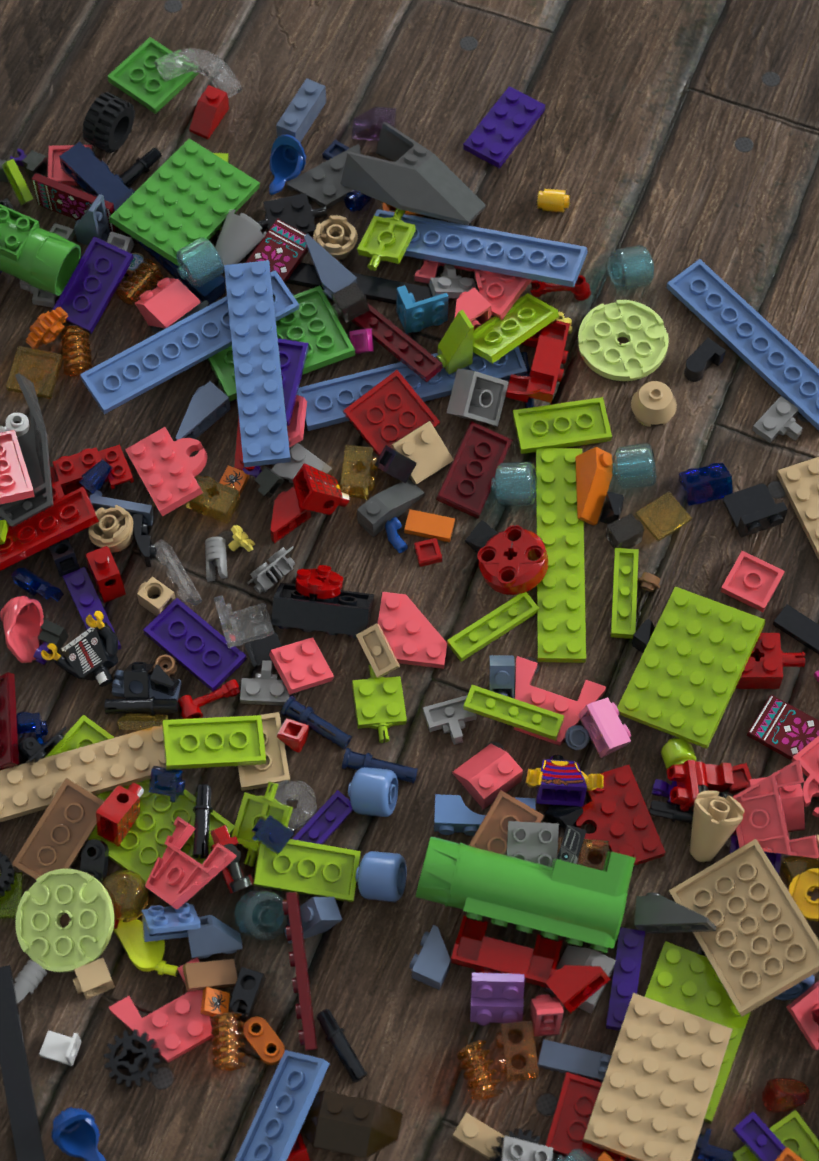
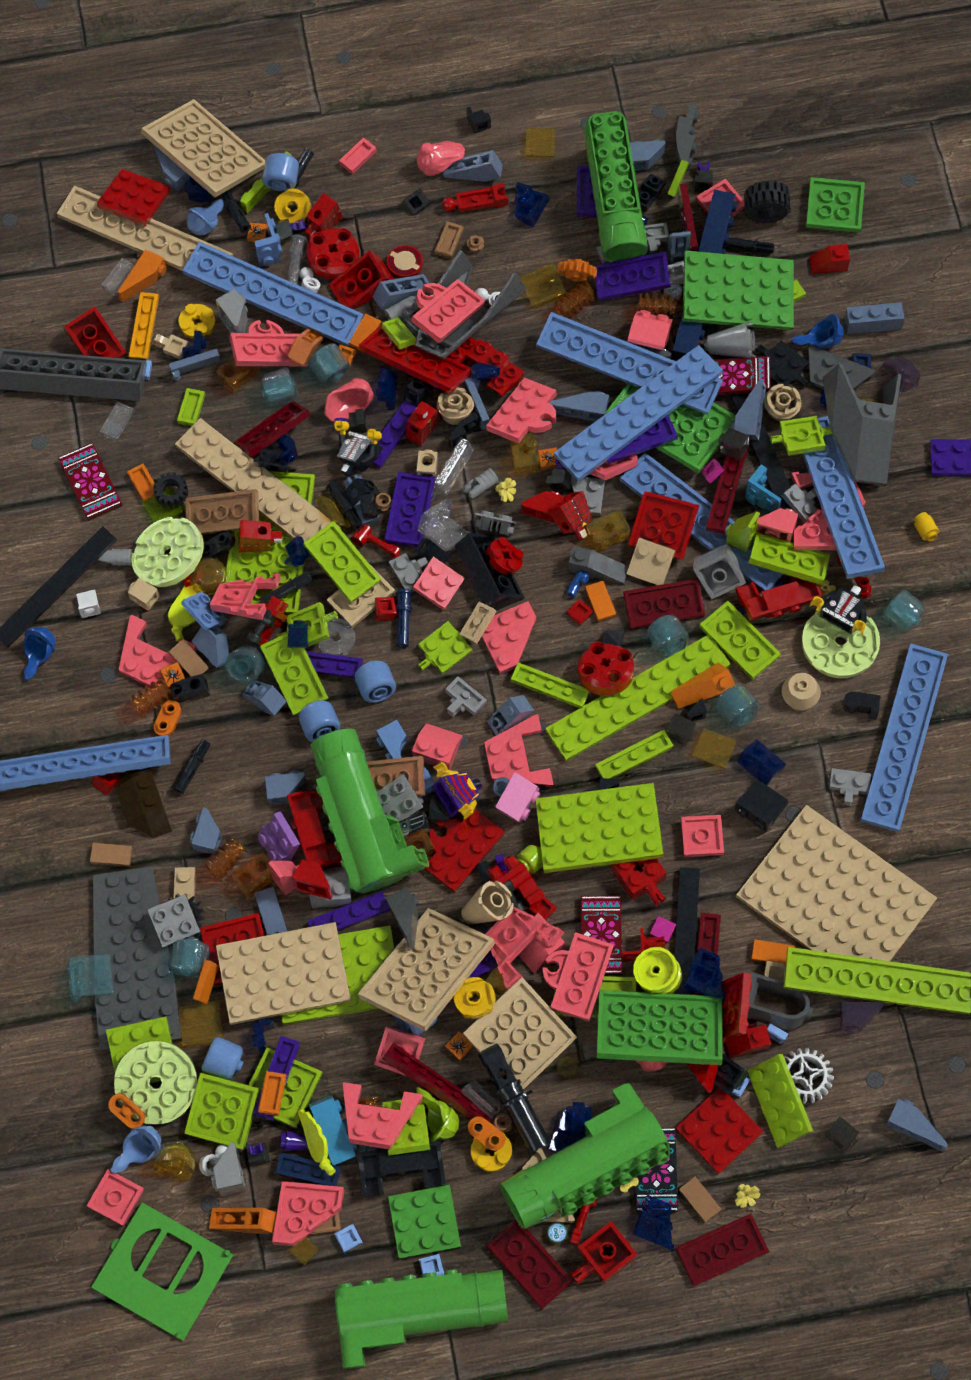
camera: 60 degrees right, 5 degrees up
(143, 1056) = (101, 656): black gear -> none
(199, 262) = (689, 328): clear light blue head -> none
(202, 62) = (866, 227): clear plate -> none
(301, 982) = (220, 710): dark red plate -> none
(357, 760) = (395, 665): dark blue pin -> none
(395, 464) = (625, 549): black panel -> none
(435, 1073) = (207, 834): none -> sand blue slope
(513, 712) = (489, 734): lime plate -> none
(599, 313) = (843, 609): none -> torso
(649, 582) = (654, 767): medium nougat plate -> none
(784, 1094) = (329, 1060): clear red rock -> none

